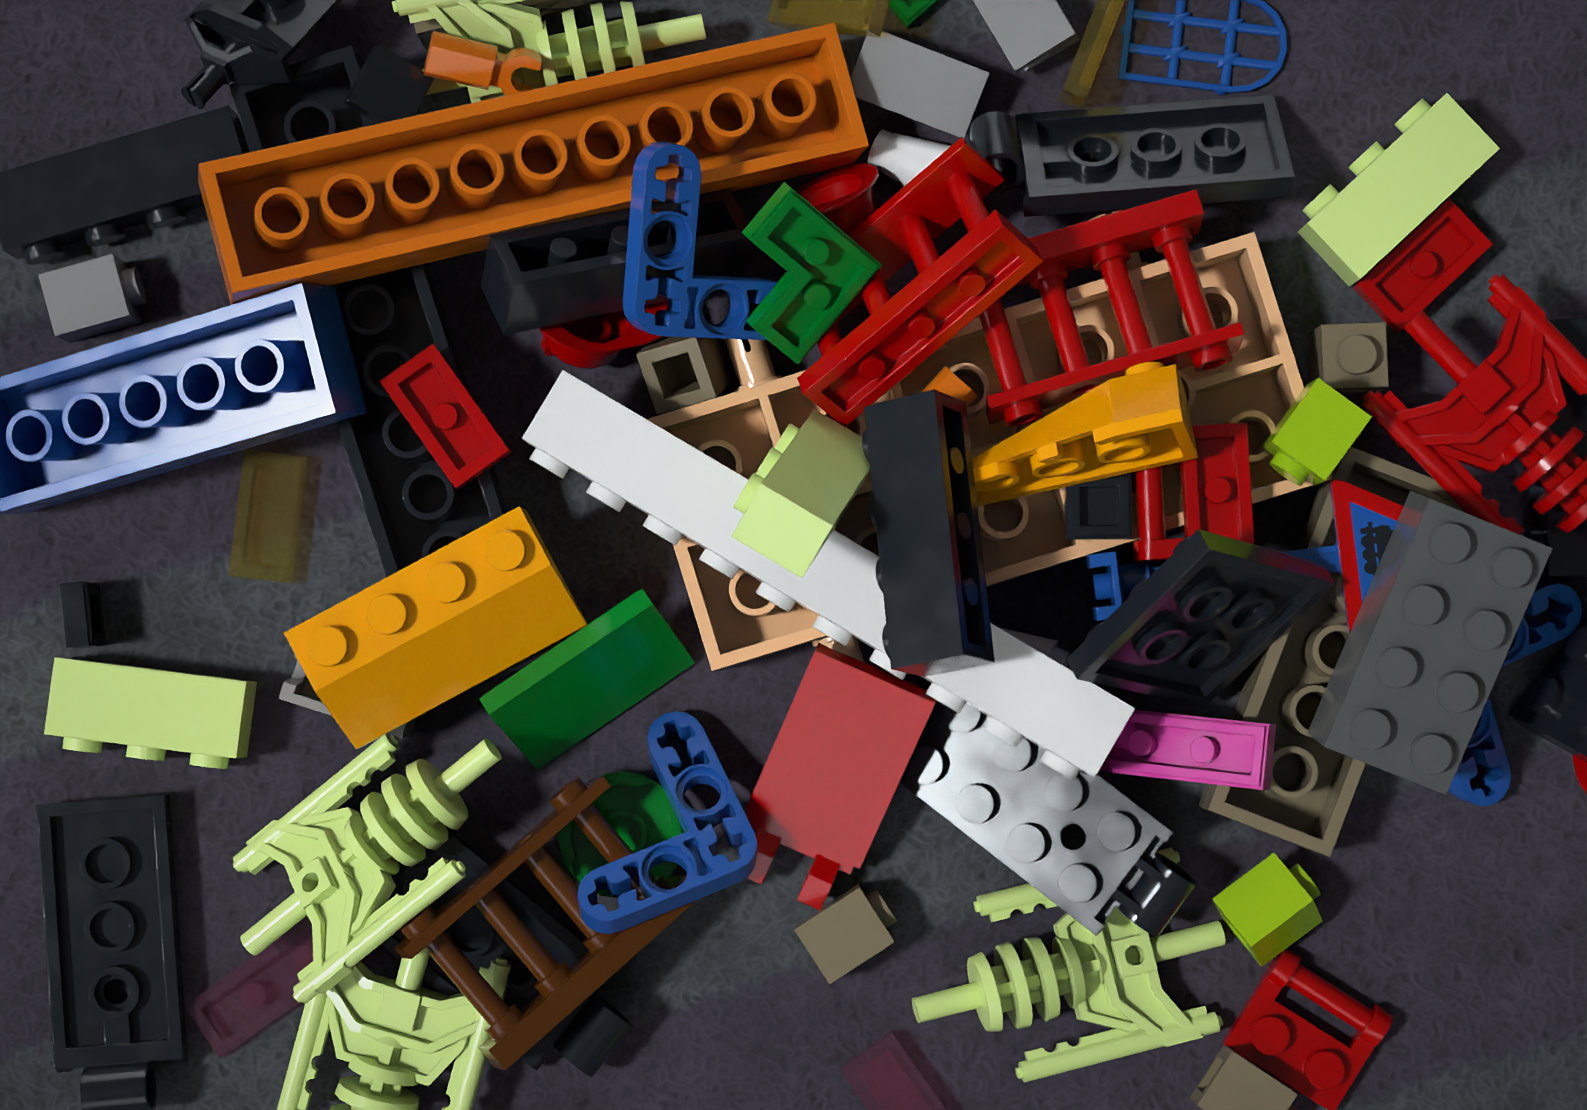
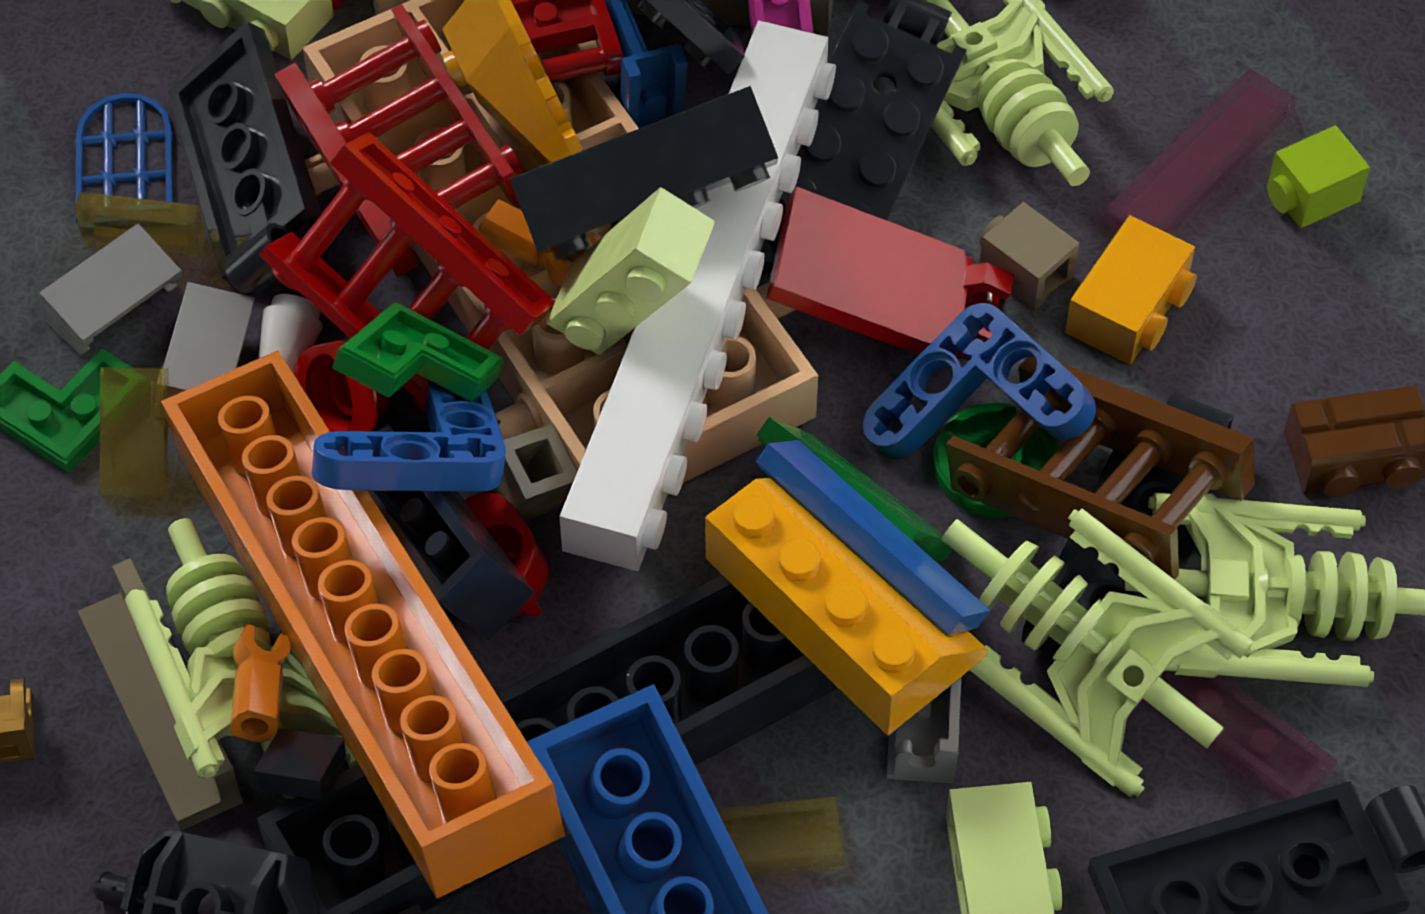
camera: 105 degrees left, 30 degrees down
(445, 416) = (630, 632): red plate -> none
(483, 667) = (872, 537): none -> blue tile
(776, 1027) = (1131, 290): none -> light orange brick
(1099, 509) = (588, 104): black tile -> none

